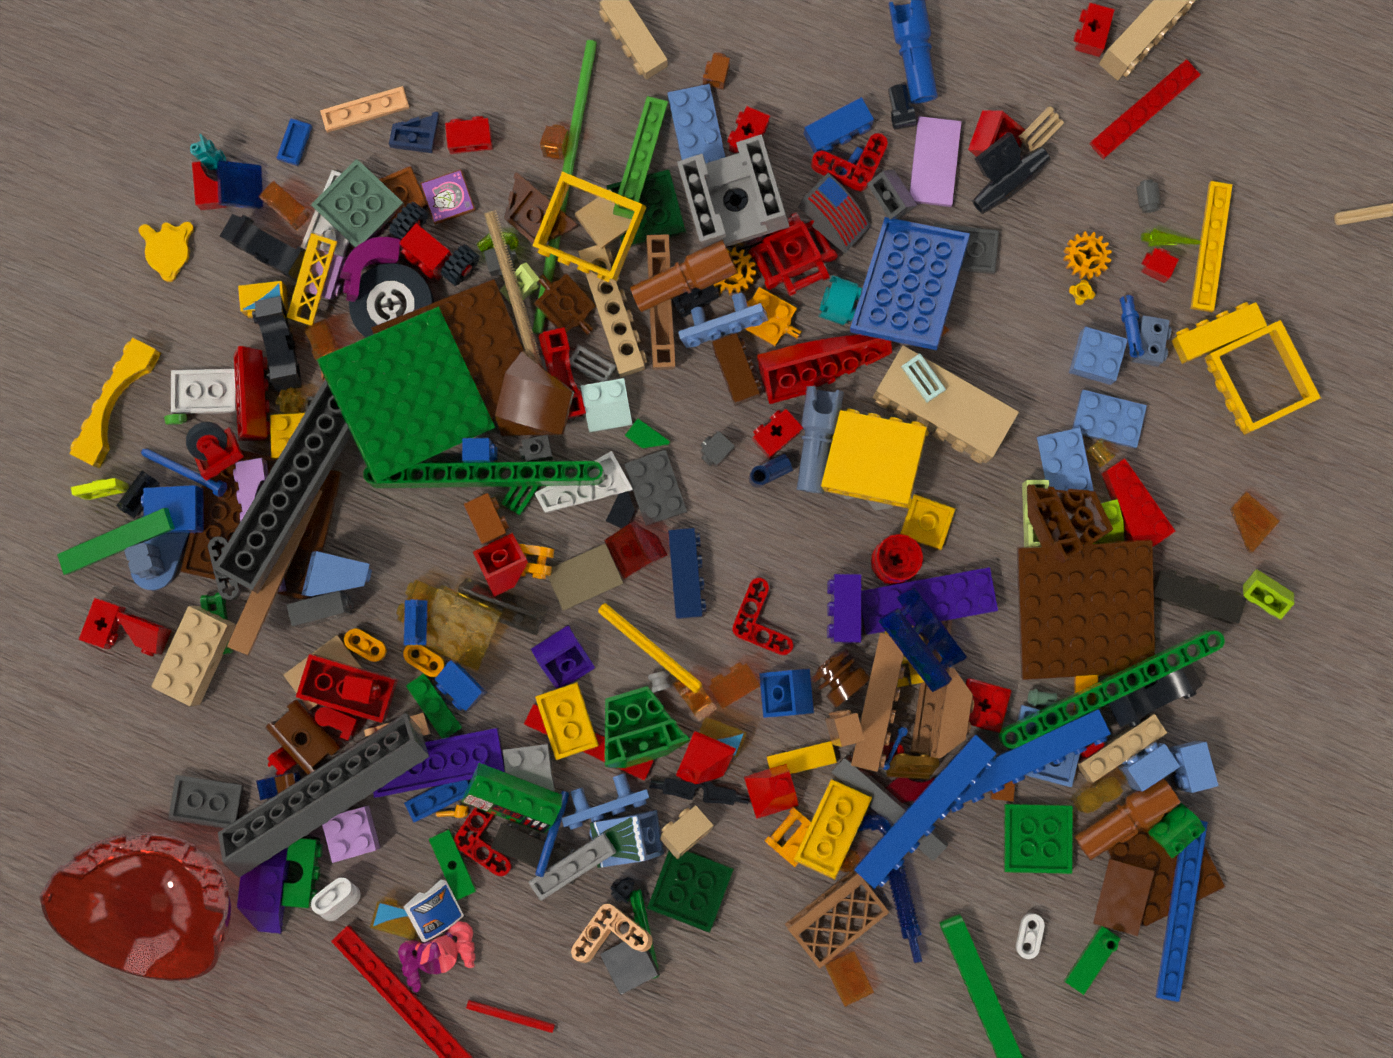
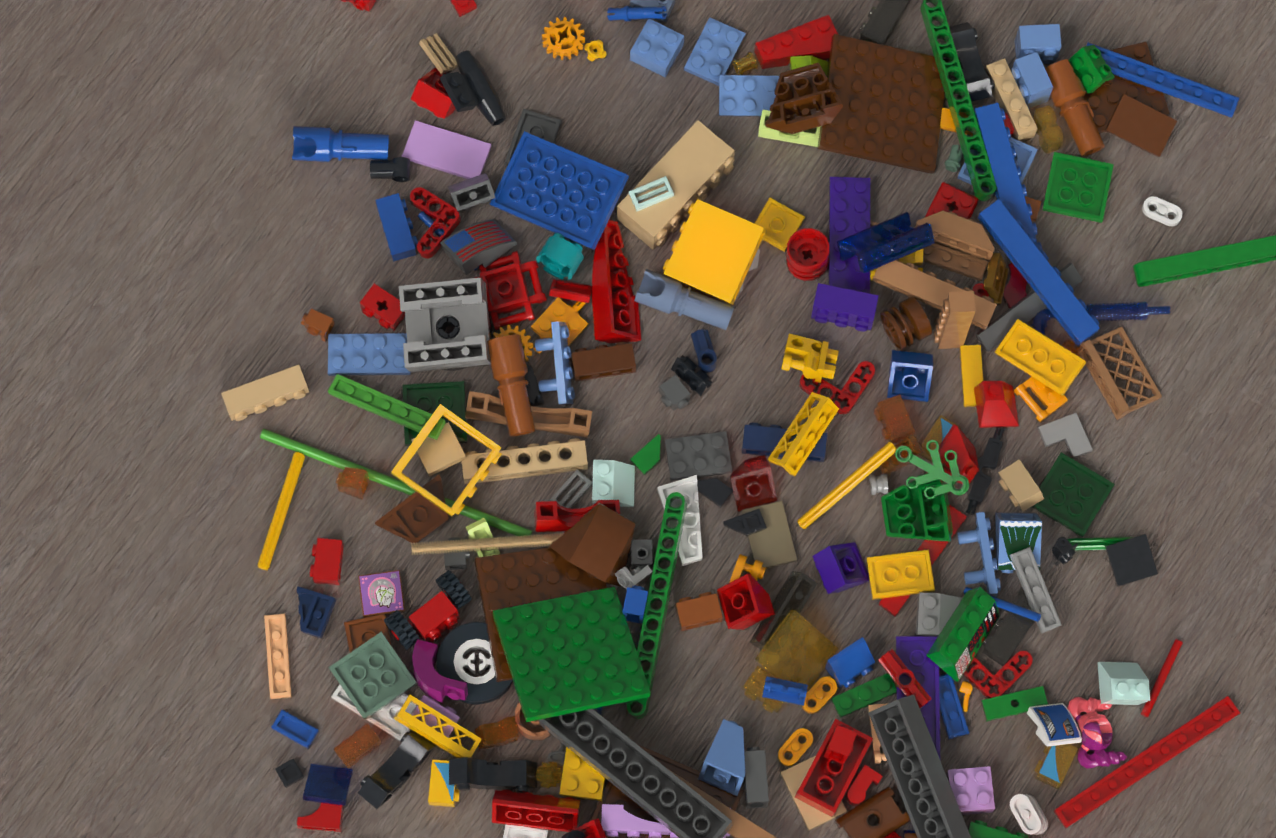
camera: 80 degrees left, 10 degrees down
(207, 153) = (292, 807): teal hinge -> none
(249, 146) = (289, 773): none -> black tile
(459, 734) = (895, 668): none -> red piece
(486, 242) = (433, 559): clear neon green arm -> none
(493, 976) = (1122, 683): none -> light aqua slope
(508, 446) = (629, 579): none -> light grey bracket
(511, 492) = (664, 564): green tile -> none
(513, 78) = (281, 511): none -> yellow axle
(564, 304) = (510, 502): reddish brown plate -> none
(590, 551) = (747, 523): none -> black tile
(613, 925) = (1093, 567): light nougat beam -> none
(678, 738) = (935, 472): none -> green plant
(693, 594) = (807, 433): none -> yellow fence
(745, 455) = (685, 369): none -> black hinge
(762, 872) = (1067, 429): none -> light grey tile
(773, 444) = (670, 326): red brick -> none
(786, 587) = (810, 357): none -> yellow hips
(806, 319) = (570, 291): none -> red tile
(849, 978) = (1174, 372): clear orange plate -> none
(902, 731) = (964, 280): blue hinge -> none
(1092, 959) = (1191, 163): green piece -> none

